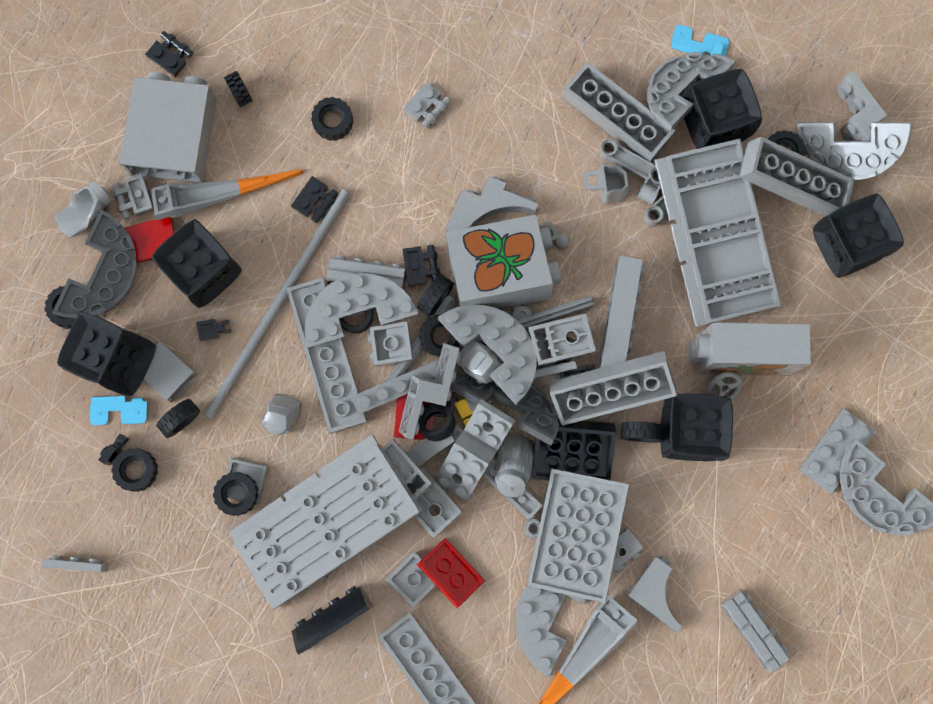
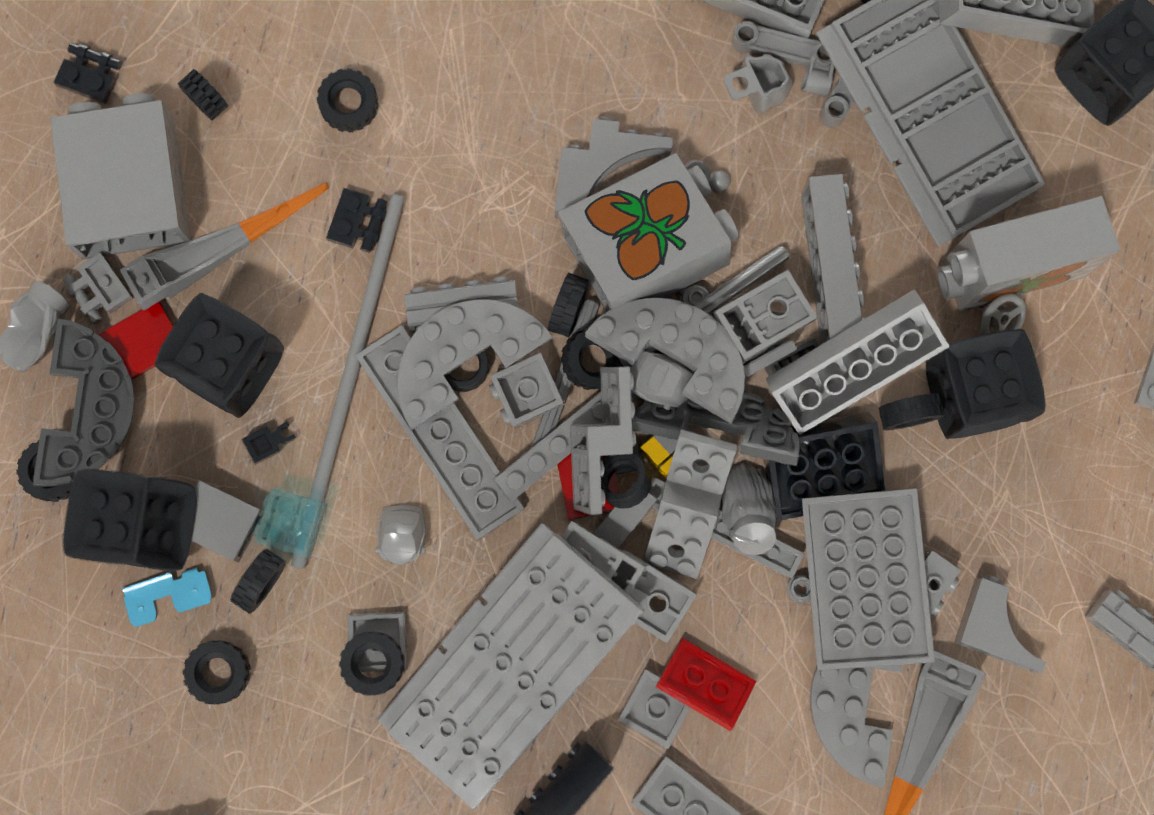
camera: 20 degrees left, 0 degrees up
(110, 452) = (175, 657): black plate -> none
(210, 386) = (290, 523): none -> clear light blue plate
(415, 268) = (526, 273): black plate -> none
(422, 102) = (466, 43): light grey plate -> none

